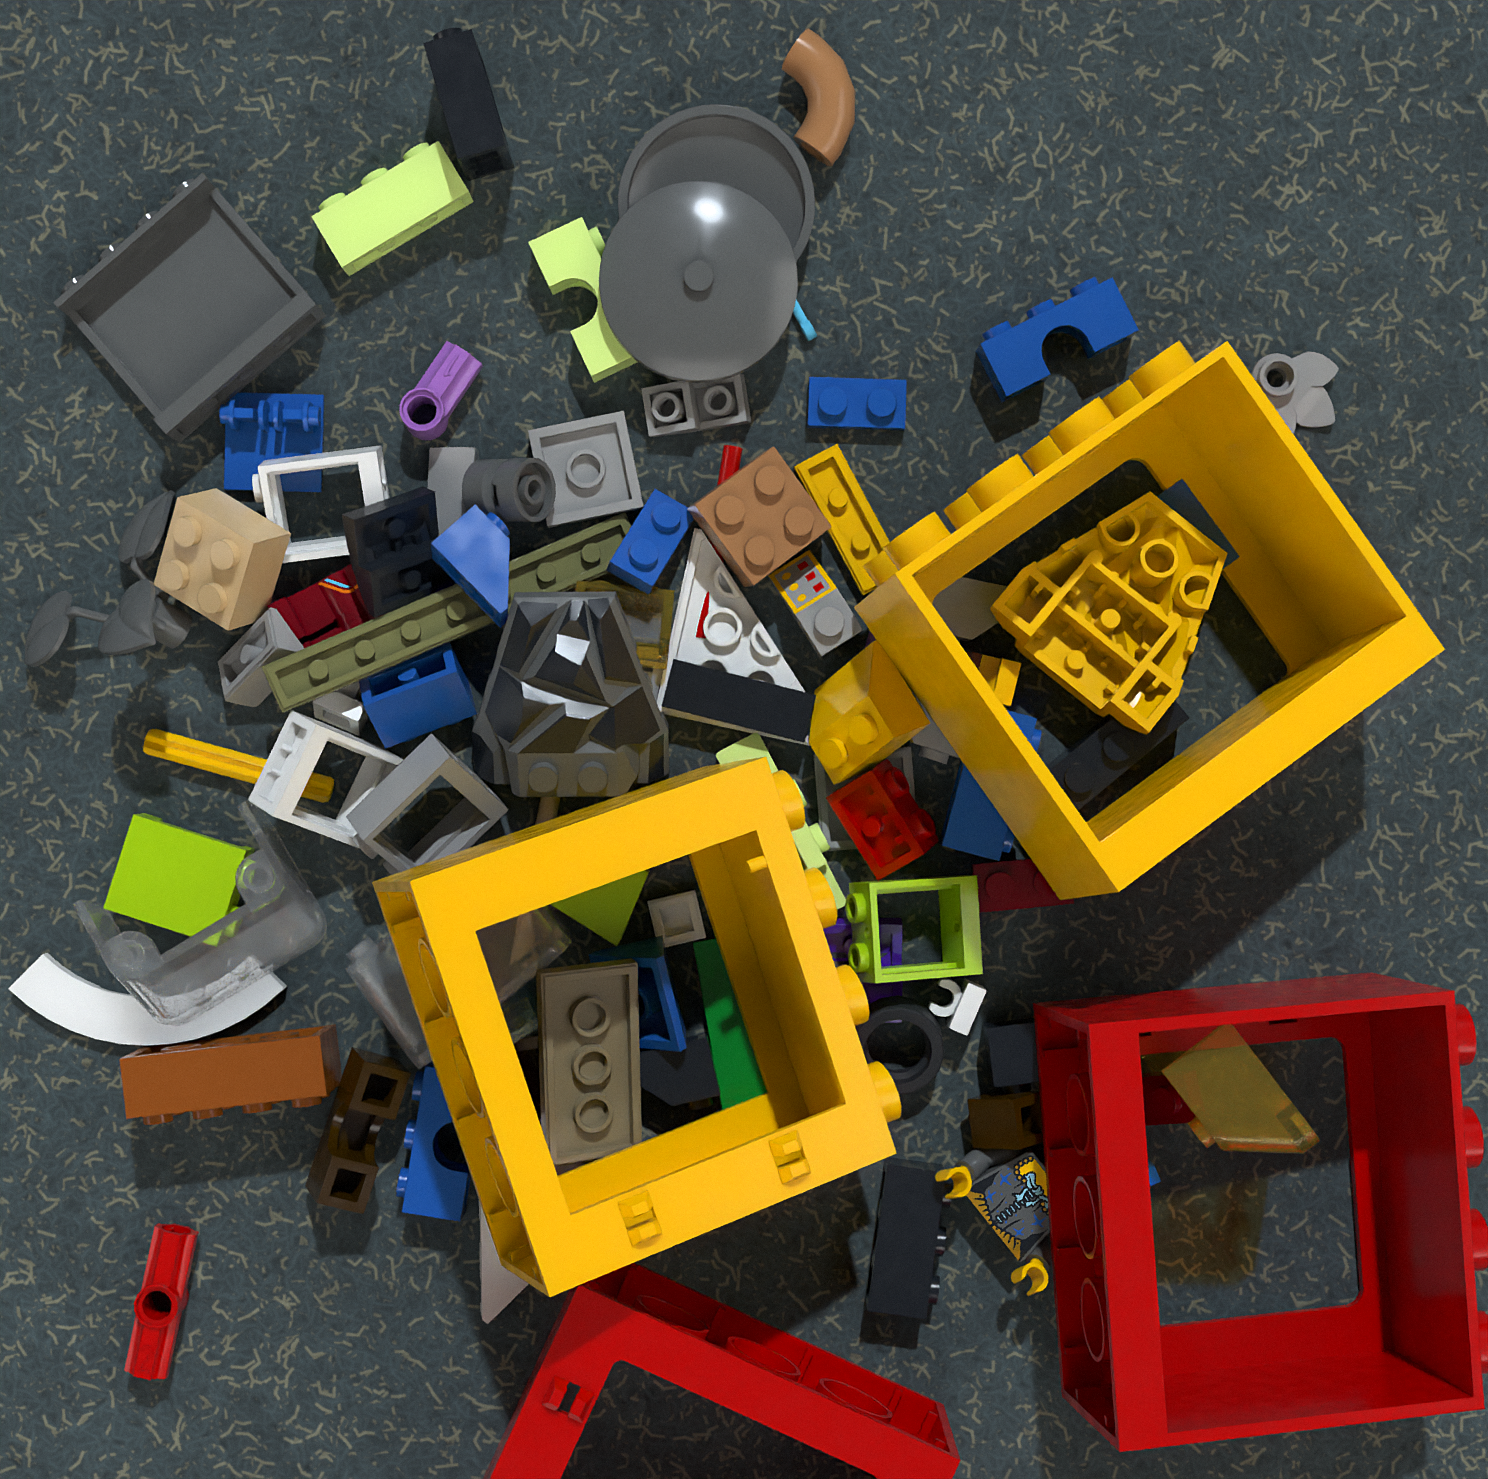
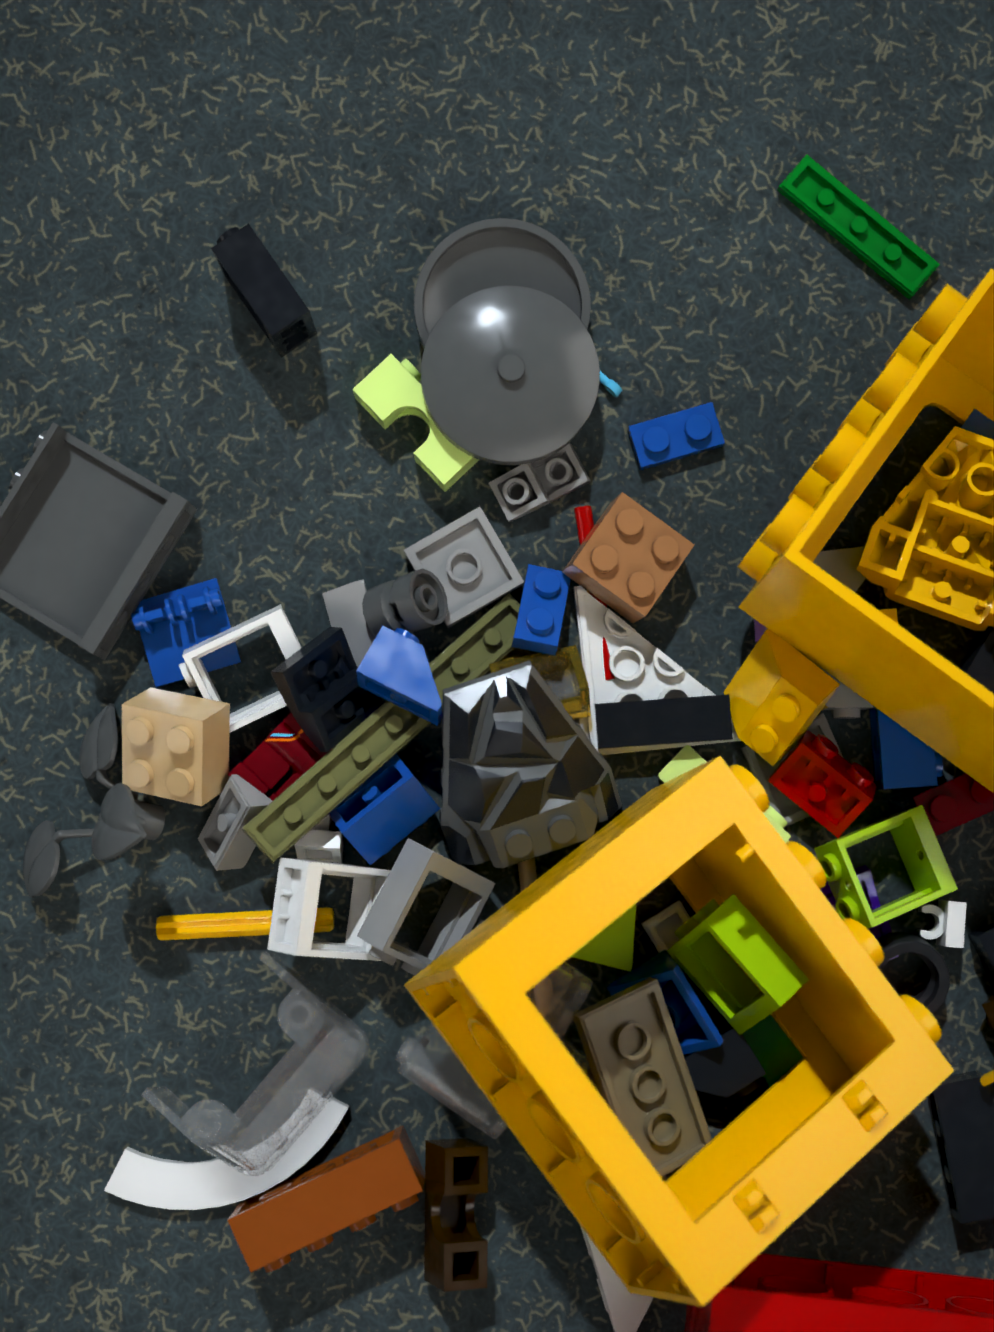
camera: 20 degrees left, 5 degrees down
(174, 876) = (222, 1040): lime panel -> none
(392, 207) = (225, 398): yellowish green brick -> none
(432, 1182) = (538, 1238): blue arch -> none
(442, 387) = (316, 539): medium lavender piece -> none
(724, 972) = (719, 974): none -> lime window
(815, 603) = (701, 617): light grey slope -> none
(828, 96) = (566, 187): medium nougat cylinder -> none
(846, 508) = (715, 544): yellow tile -> none
(1092, 316) = (853, 297): blue arch -> none
(1127, 242) = (858, 227): none -> green tile

